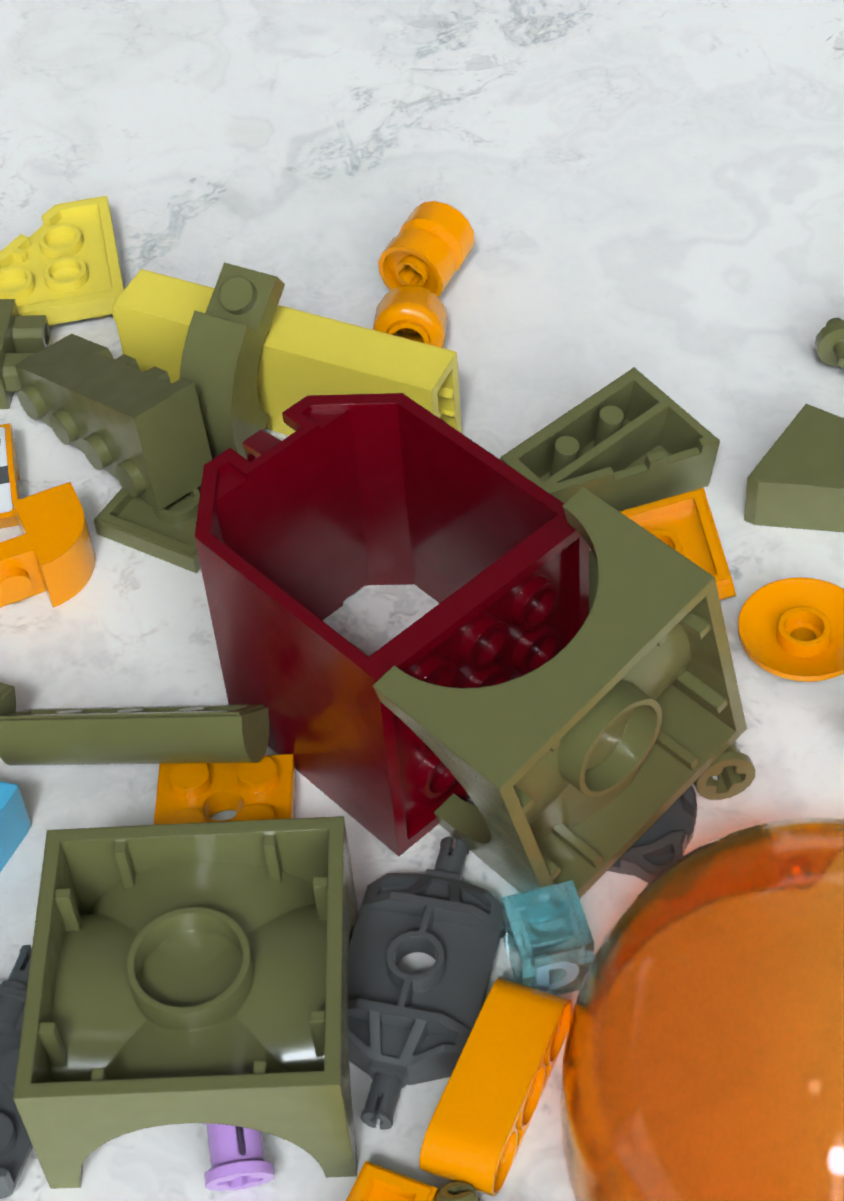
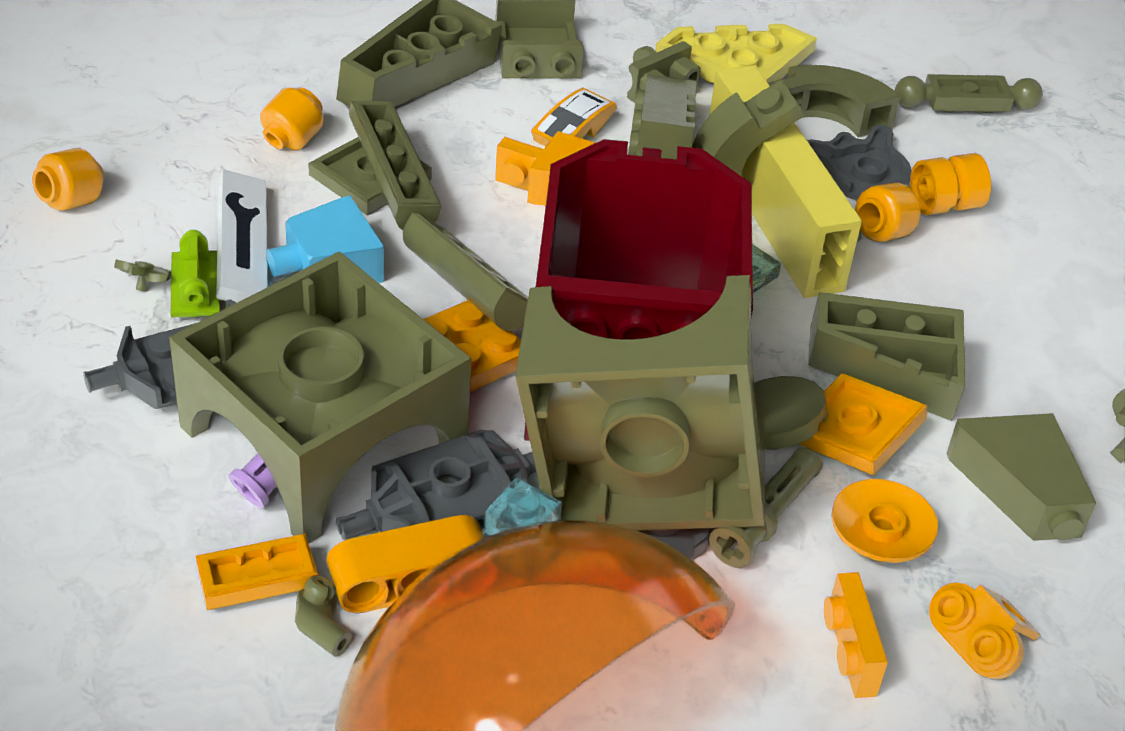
camera: 40 degrees right, 5 degrees down
(203, 237) = (842, 96): none -> olive arch
(309, 147) = (969, 93): none -> olive plate
(327, 285) = (863, 162): none -> dark grey tile

